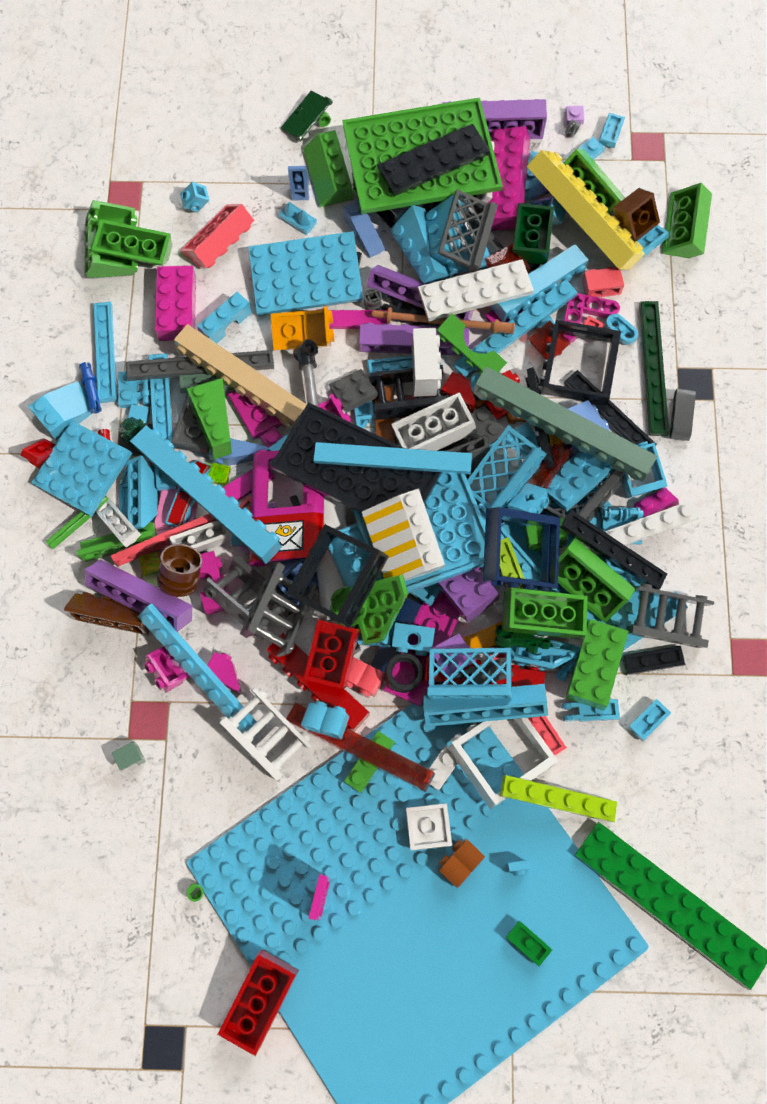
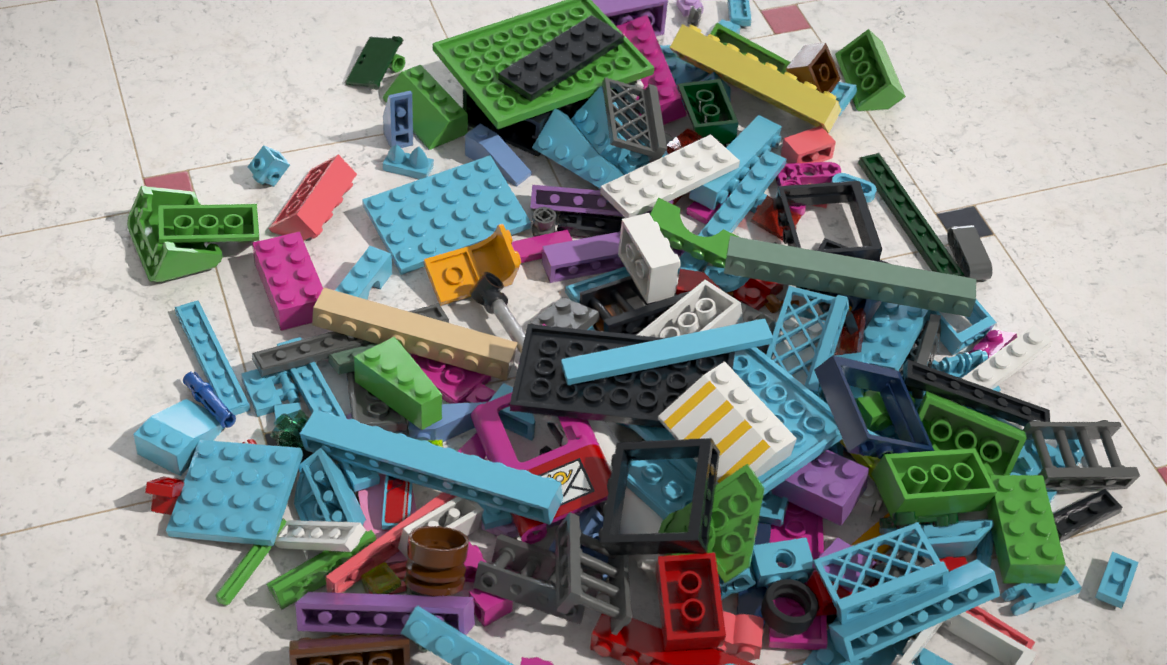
camera: 25 degrees left, 25 degrees down
(494, 326) = (709, 211): nougat bar -> none

